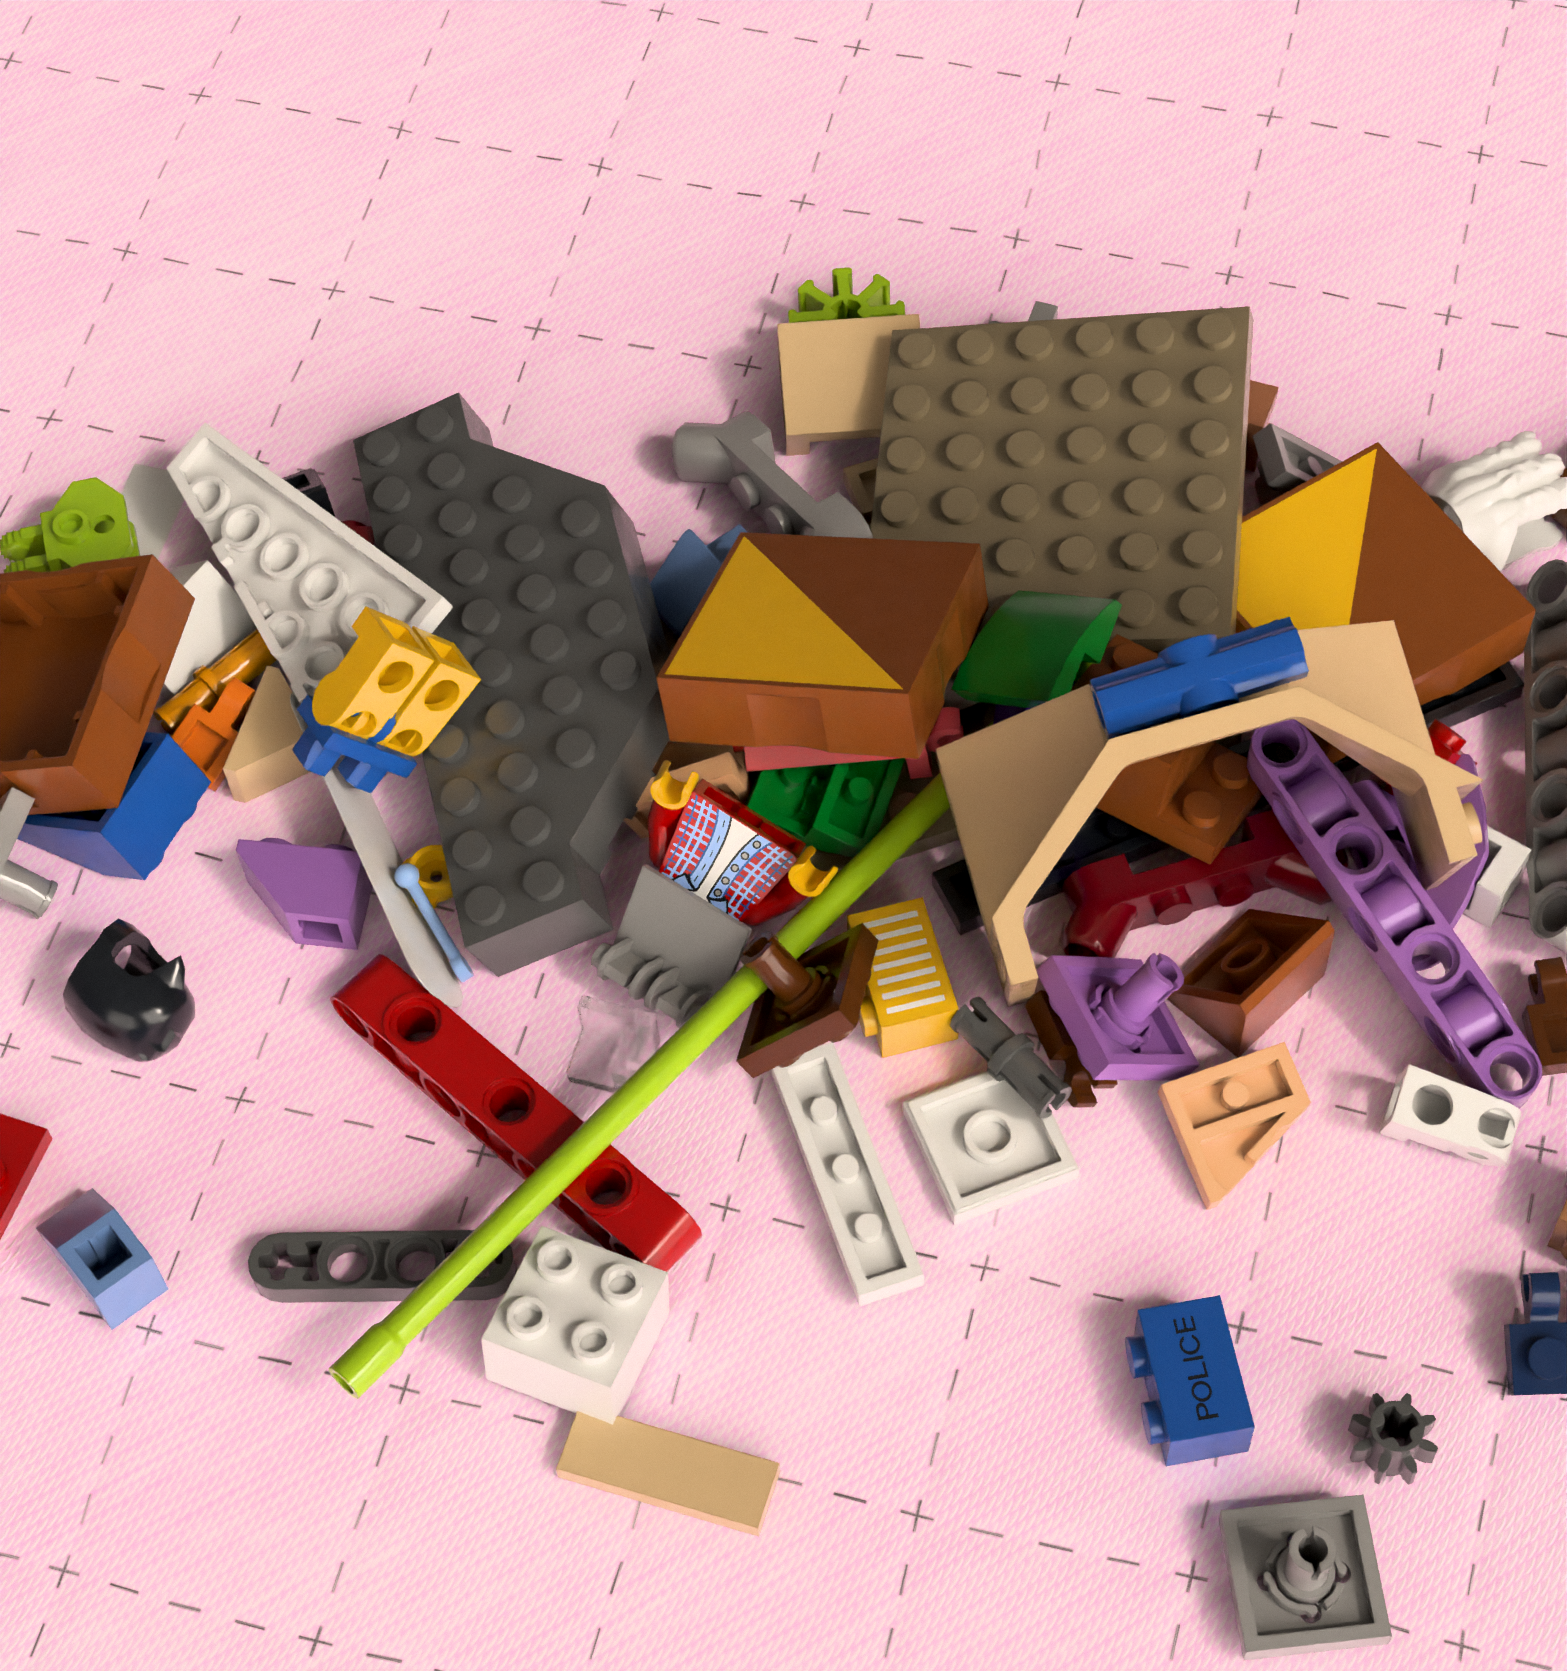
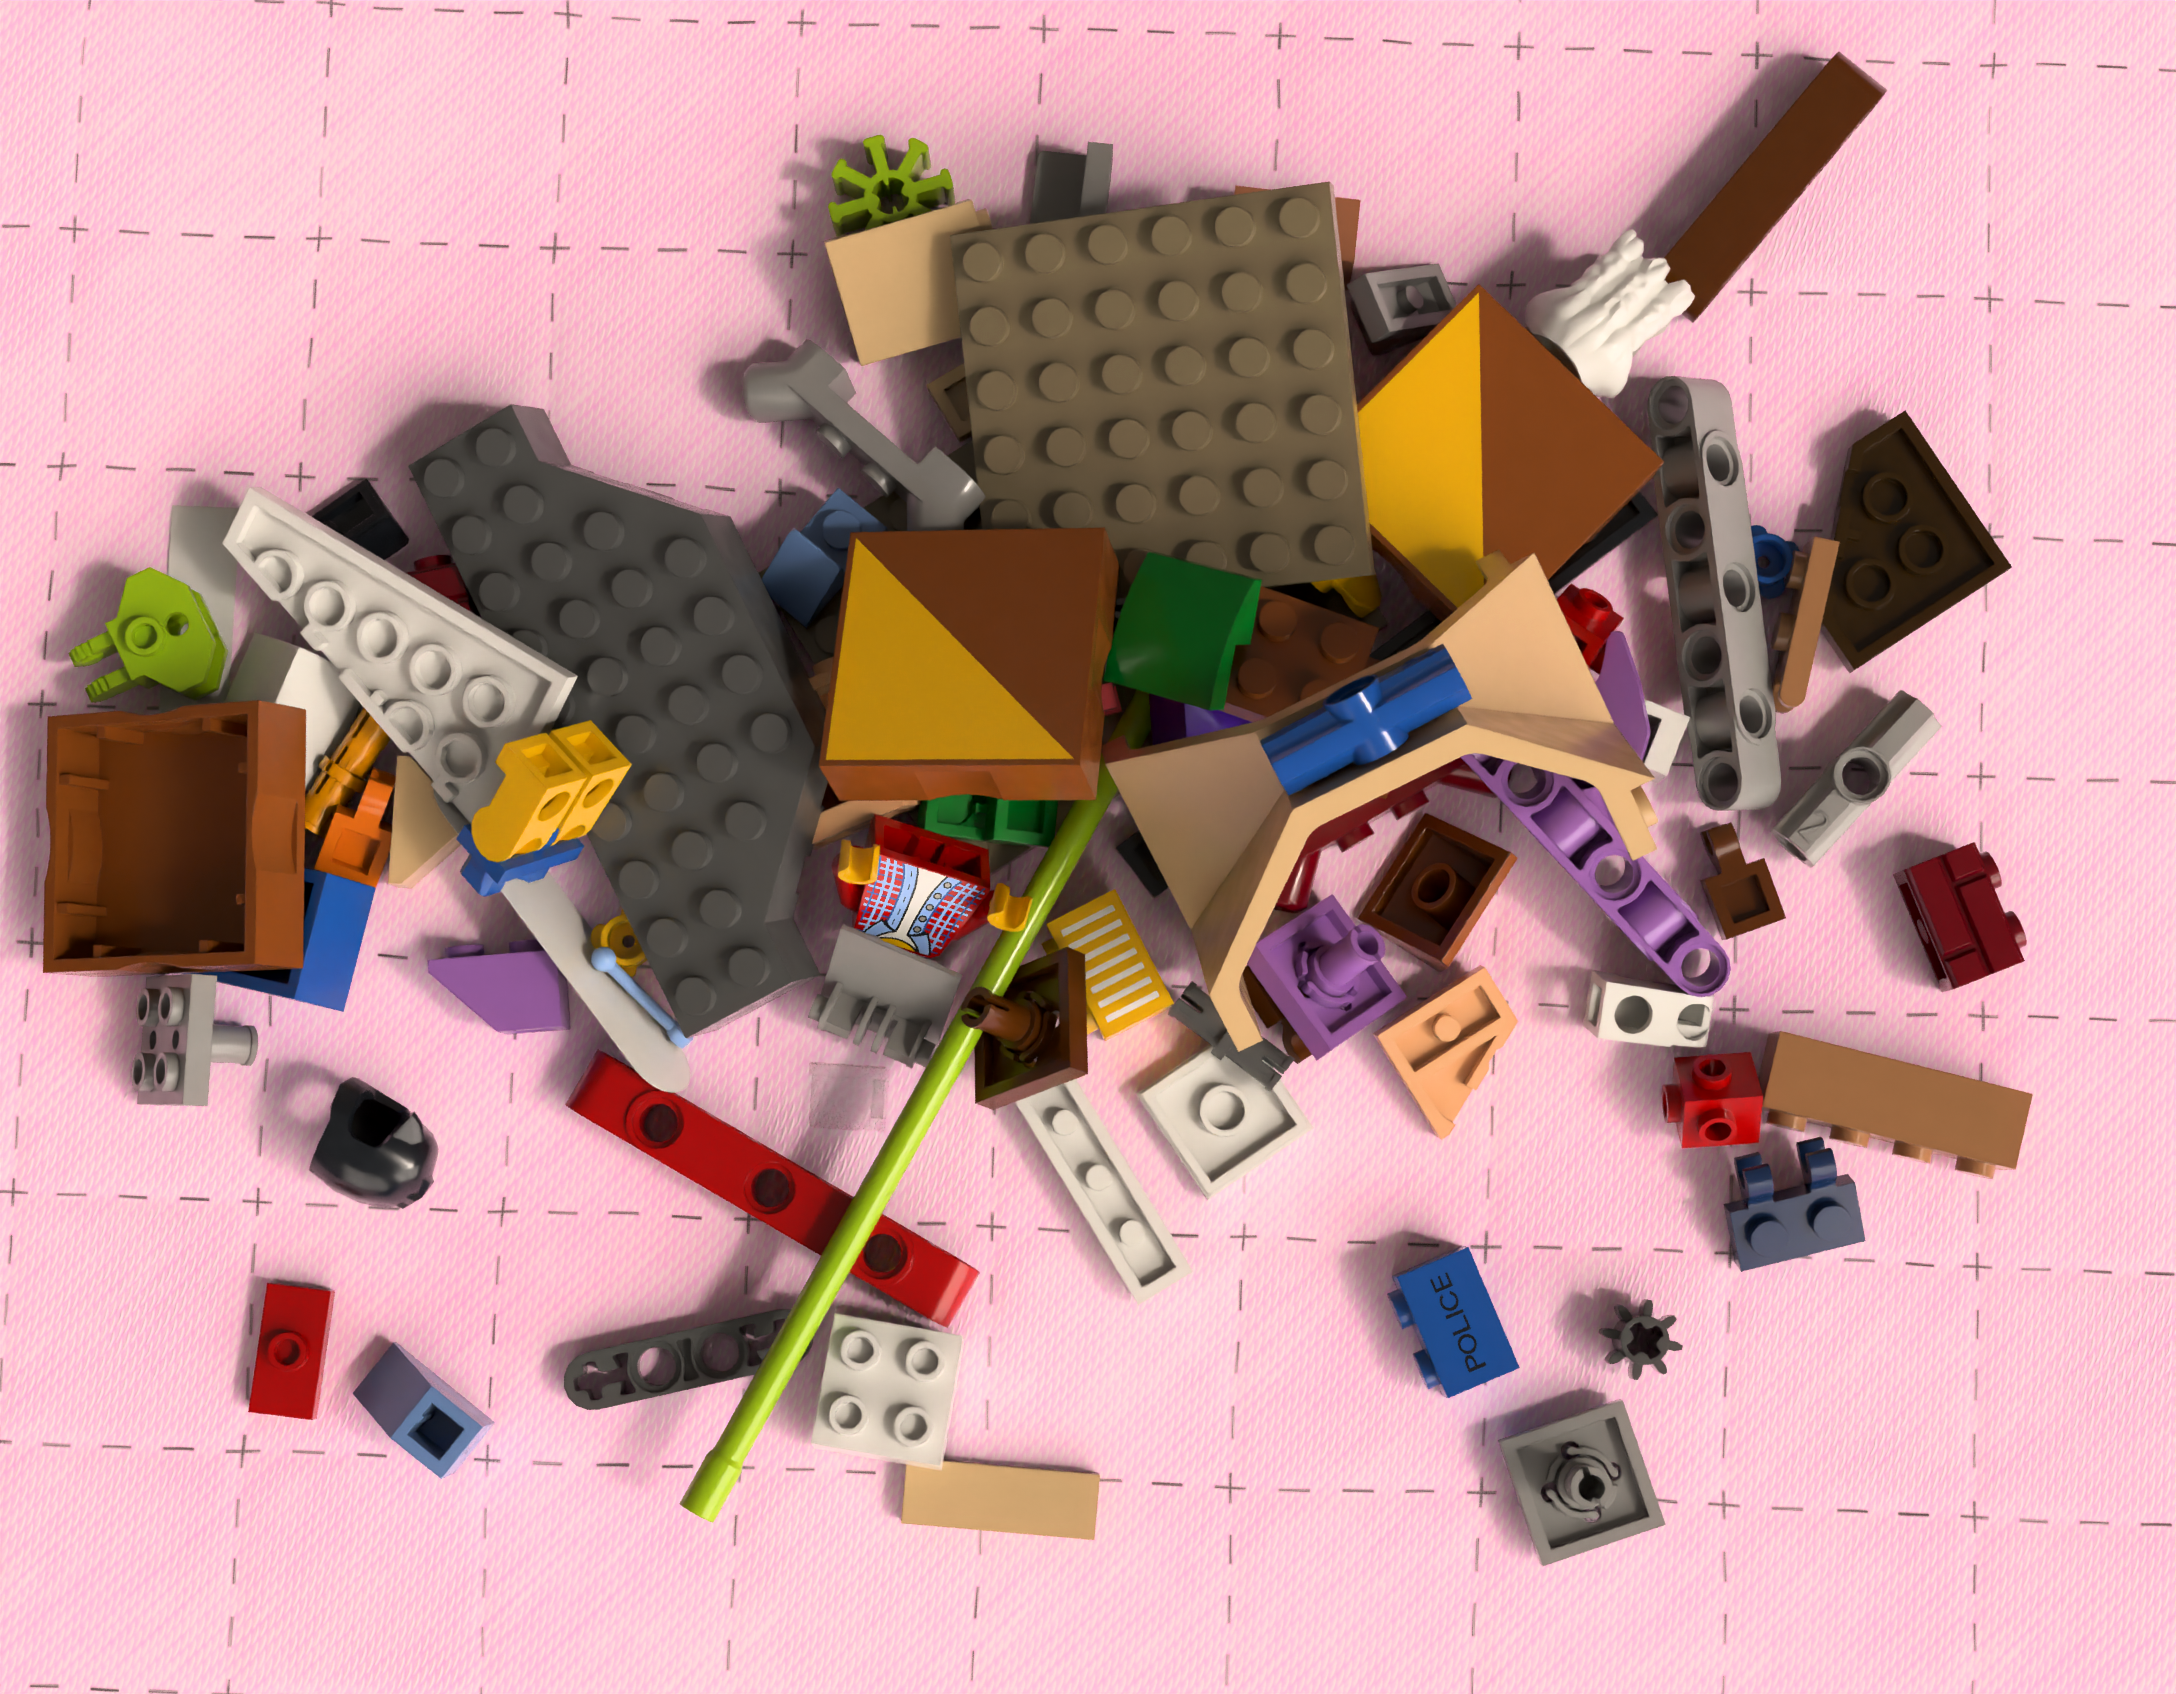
camera: 15 degrees left, 25 degrees up
(1507, 1211) = (1714, 1100): none -> red brick

